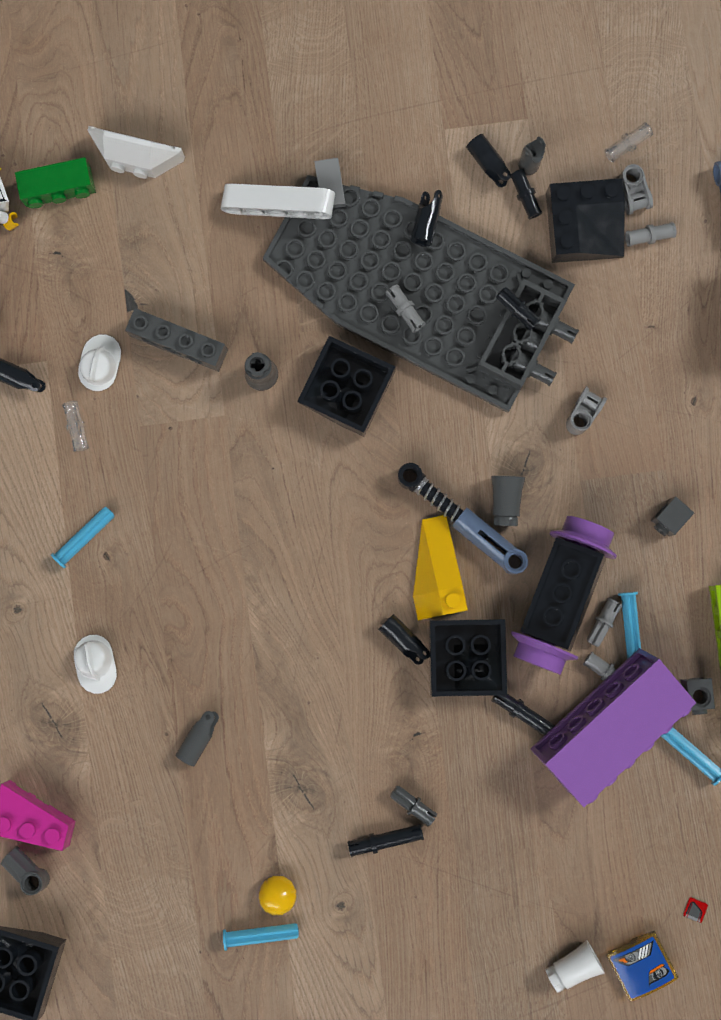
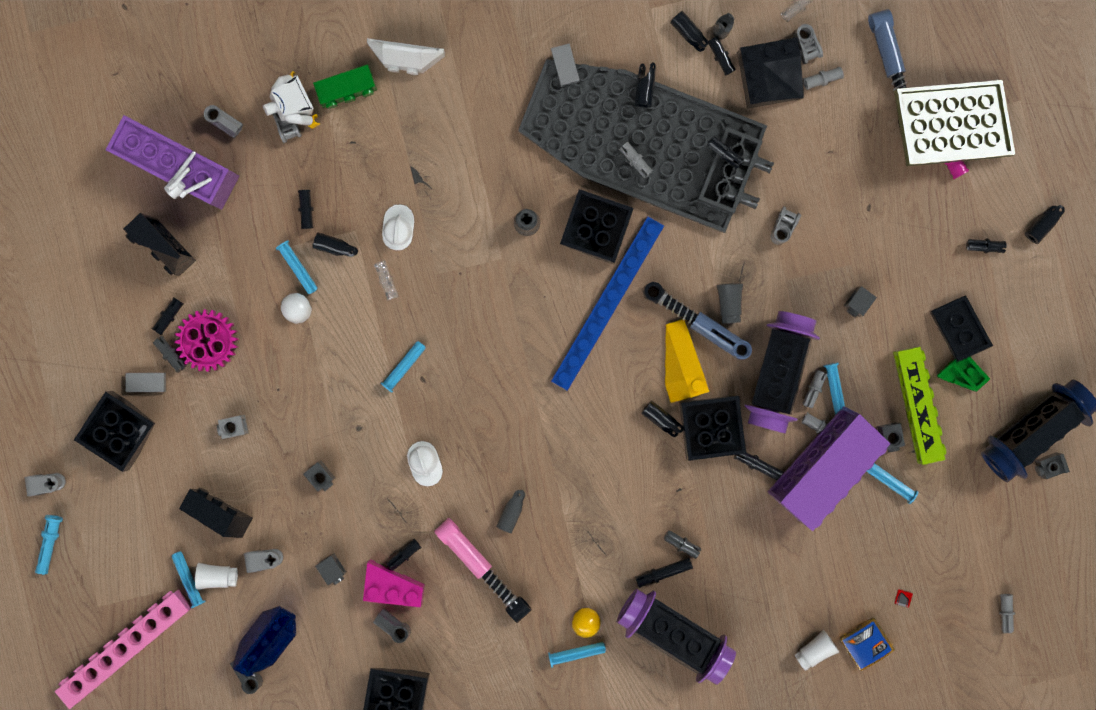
camera: 10 degrees left, 5 degrees up
(51, 779) = (403, 554): none -> black axle
(116, 760) = (451, 535): none -> piece
(176, 340) = (458, 203): dark grey brick -> none
(278, 201) = (525, 84): white beam -> none
(350, 486) = (607, 303): none -> blue plate
(392, 928) = (676, 636): none -> black brick

